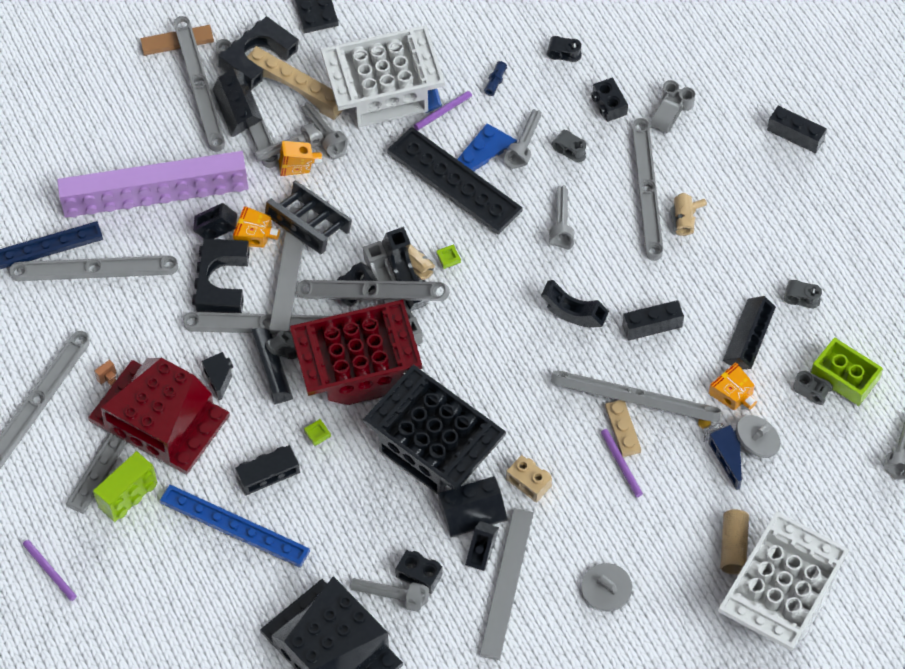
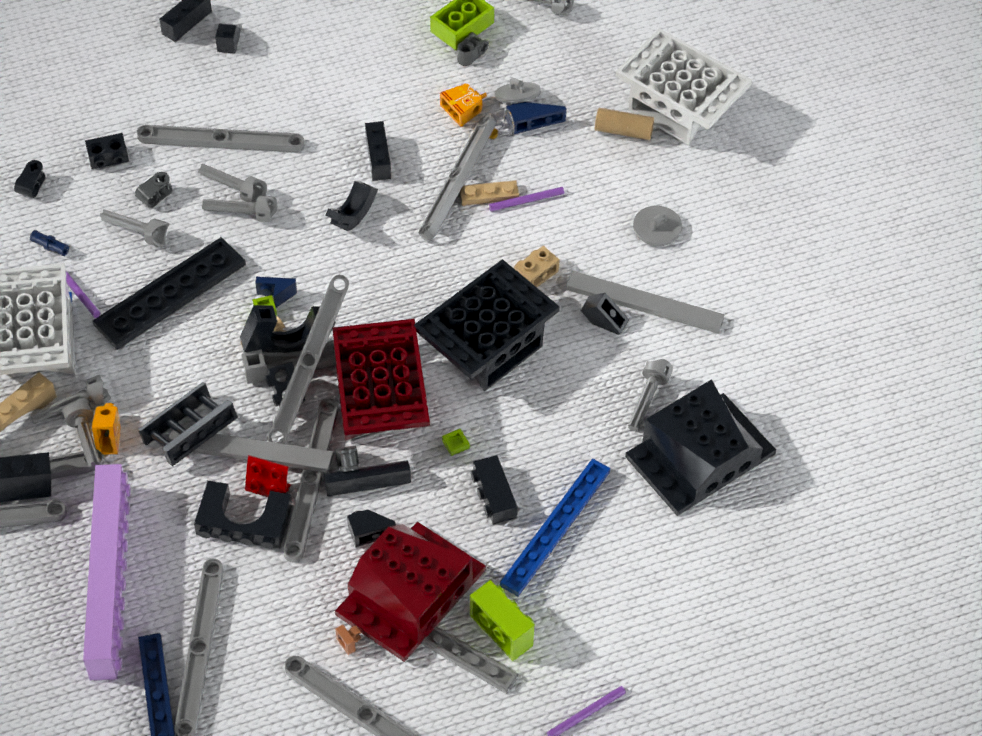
camera: 85 degrees left, 5 degrees down
(215, 222) = (176, 509): black brick -> none
(255, 228) = (186, 479): light orange torso -> none
(258, 288) = (265, 476): none -> red hinge
(416, 574) = (630, 369): black brick -> none
(468, 264) = (279, 288): none -> dark blue slope
(472, 504) = (566, 326): black slope -> none
(485, 146) = (133, 262): blue wing -> none
(583, 220) = (248, 189): none -> light grey piece
(672, 105) = (128, 103): light grey piece -> none
(682, 213) = (260, 111): tan piece -> none
(749, 332) = (403, 85): black brick -> none
(780, 170) = (227, 37): none -> black slope
(802, 293) = (370, 39): dark grey piece -> none

